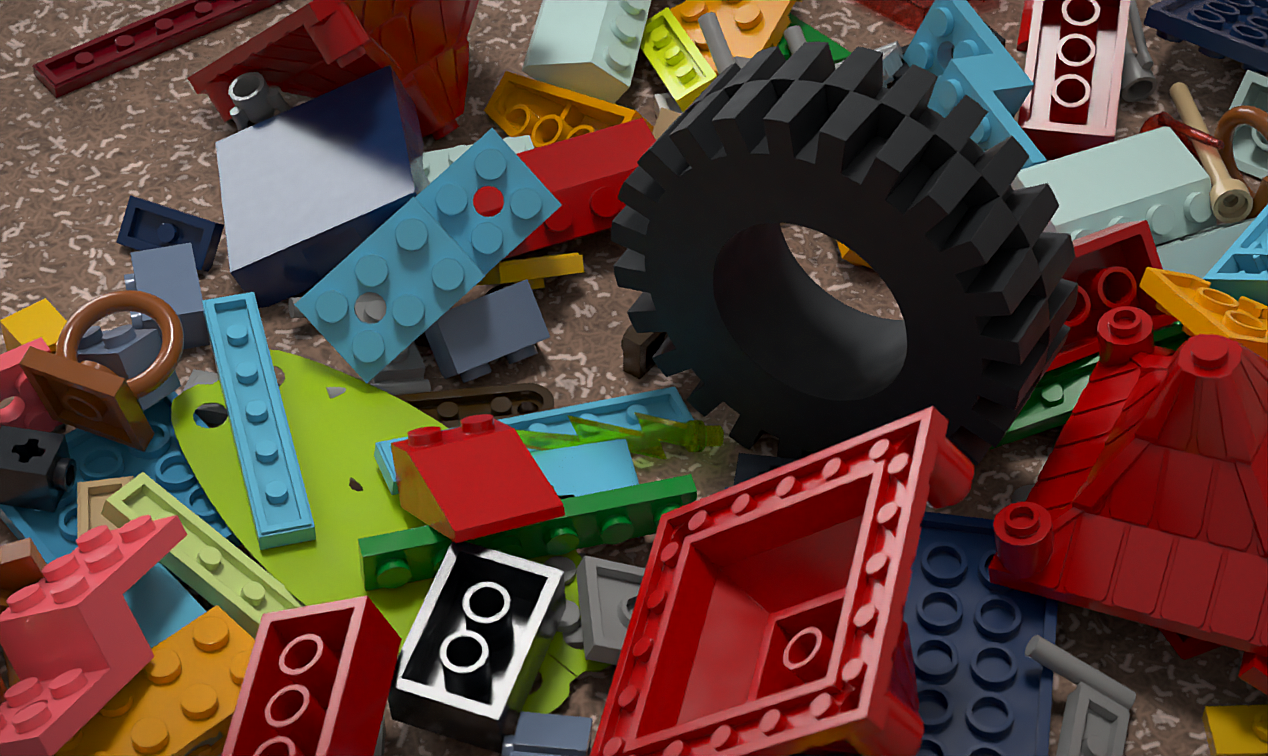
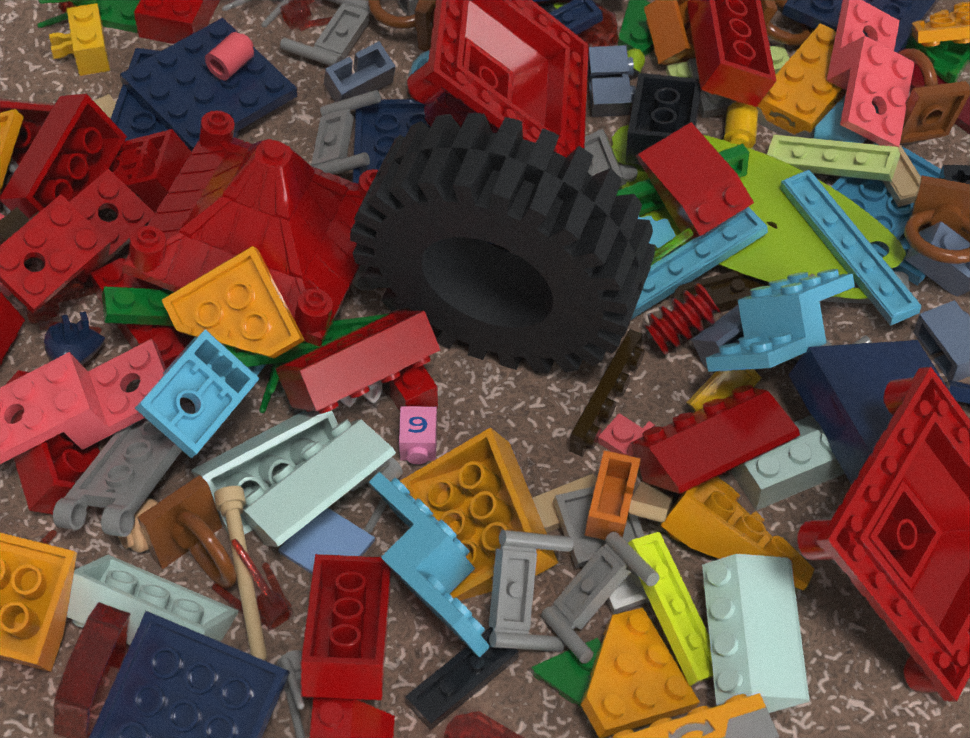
camera: 170 degrees right, 10 degrees up
(556, 351) = (682, 318): none -> red piece

